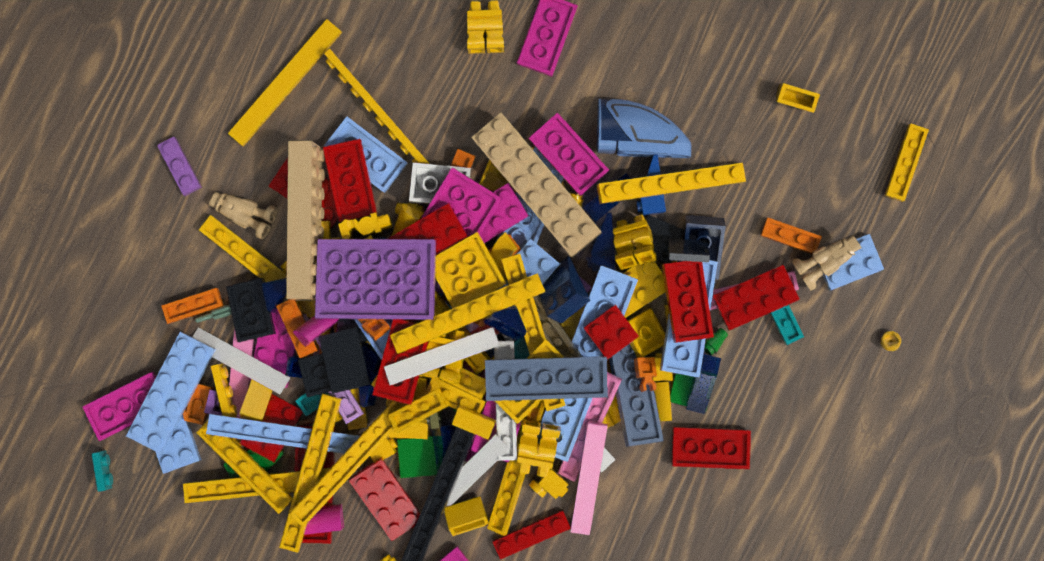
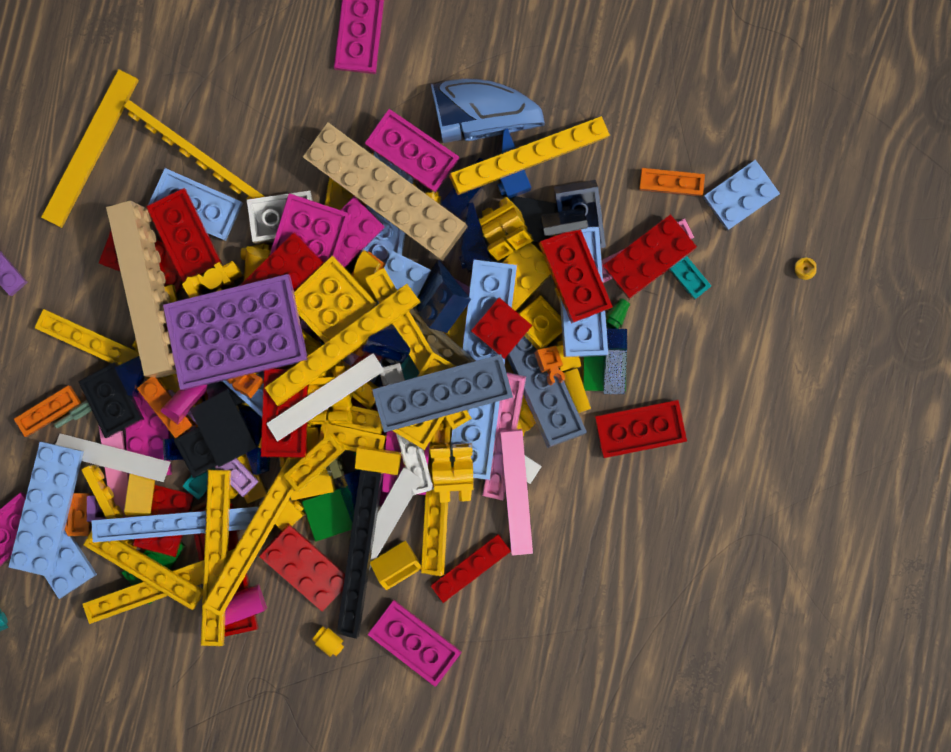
camera: 10 degrees left, 0 degrees up
(242, 210) = (77, 295): tan piece -> none
(463, 159) = (301, 183): orange plate -> none
(484, 22) = (288, 31): yellow hips -> none
(537, 488) = (465, 516): yellow tile -> none
(554, 484) = (481, 507): yellow brick -> none
(797, 97) = (643, 32): yellow brick -> none
(829, 259) = (717, 195): tan piece -> none
(906, 162) = (776, 74): yellow plate -> none

